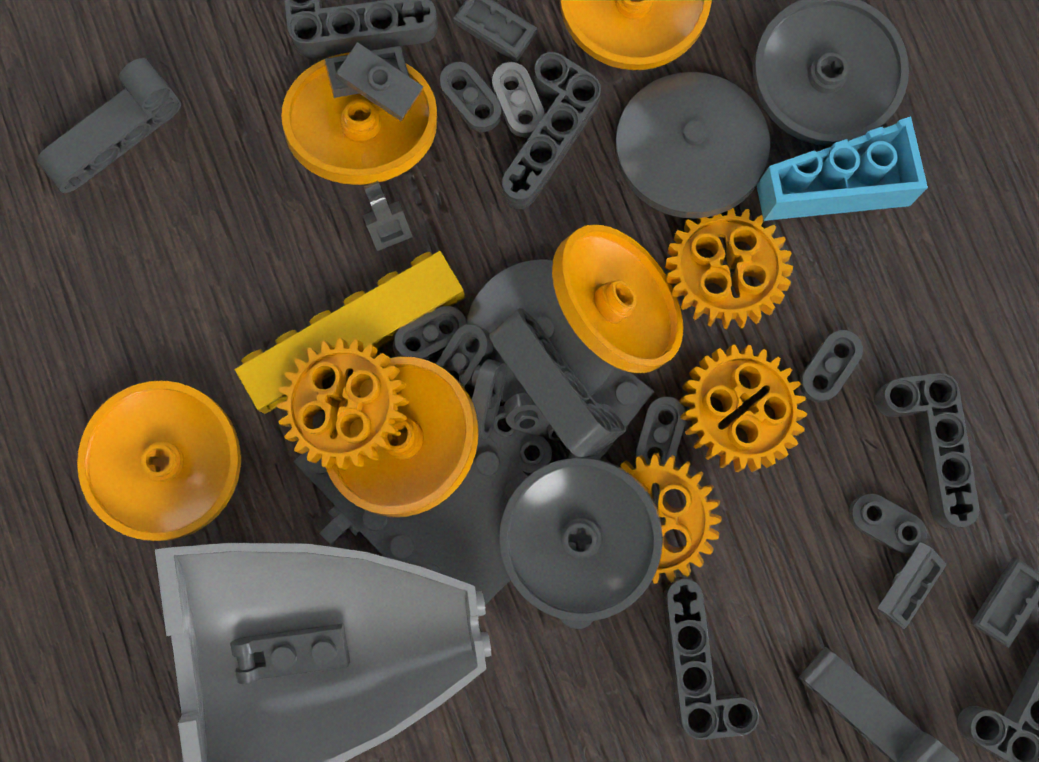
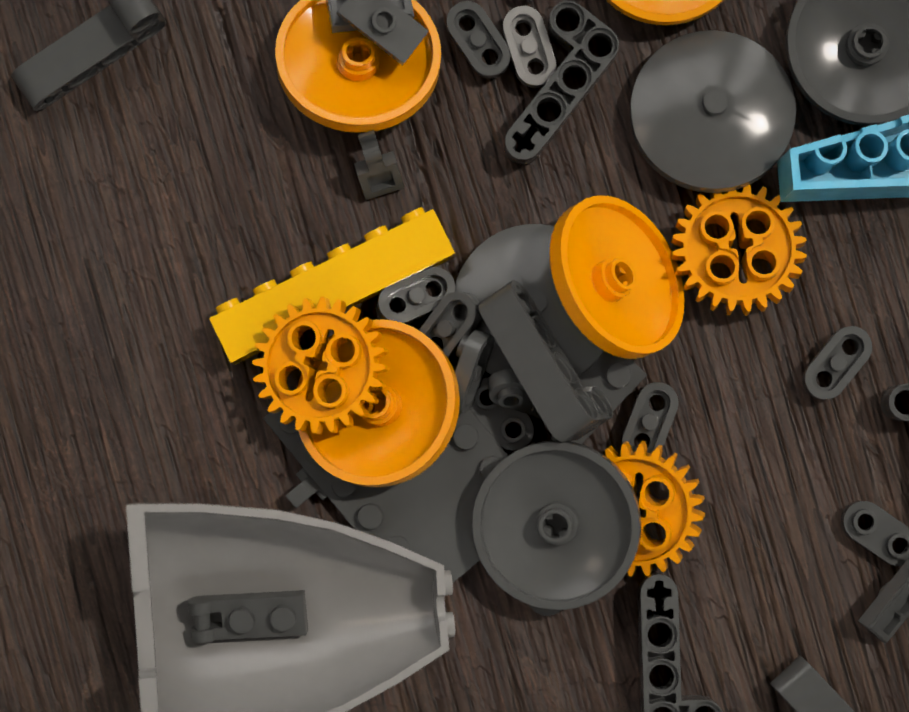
camera: 15 degrees right, 5 degrees up
(159, 461) = (124, 407): light orange dish -> none
(766, 436) = (759, 431): light orange gear -> none

